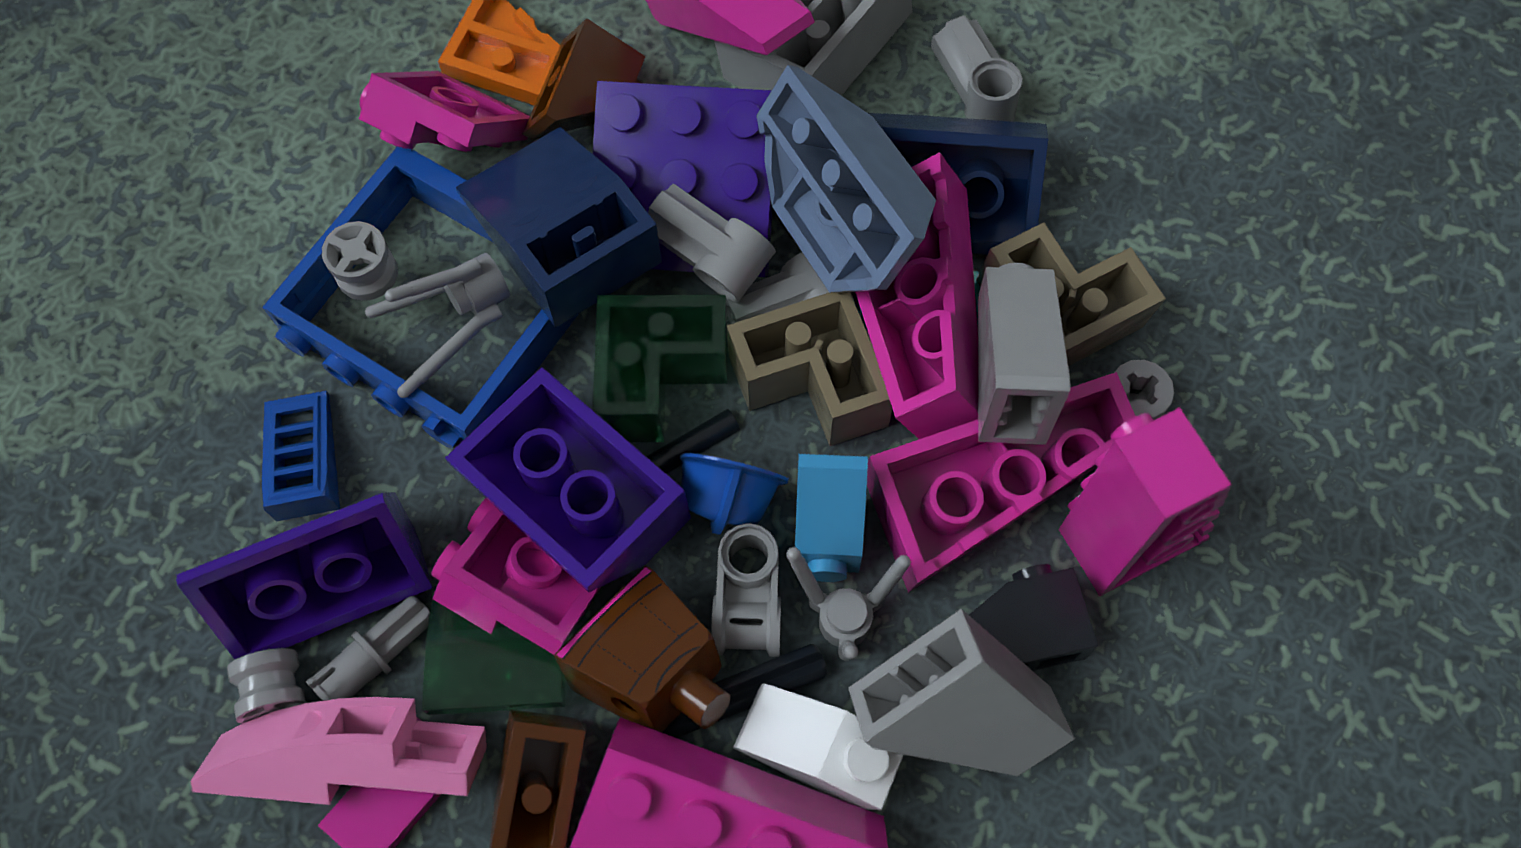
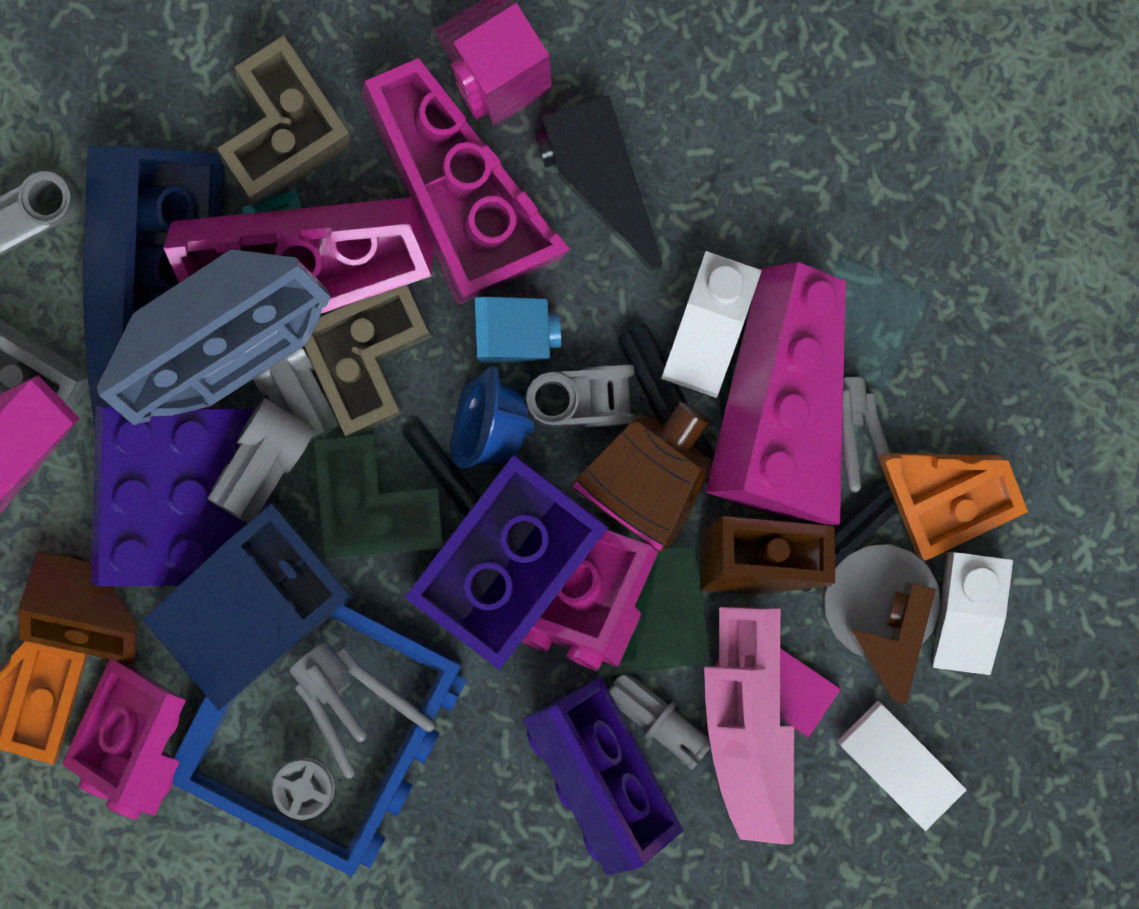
camera: 90 degrees left, 20 degrees up
(265, 683) = (698, 803): light grey wheel -> none
(305, 499) = (528, 813): blue slope -> none
(846, 613) = (593, 308): light grey plant -> none
(960, 702) = (671, 208): light grey slope -> none
(1020, 355) = (365, 170): light grey slope -> none
(1155, 386) = (367, 62): light grey wheel -> none

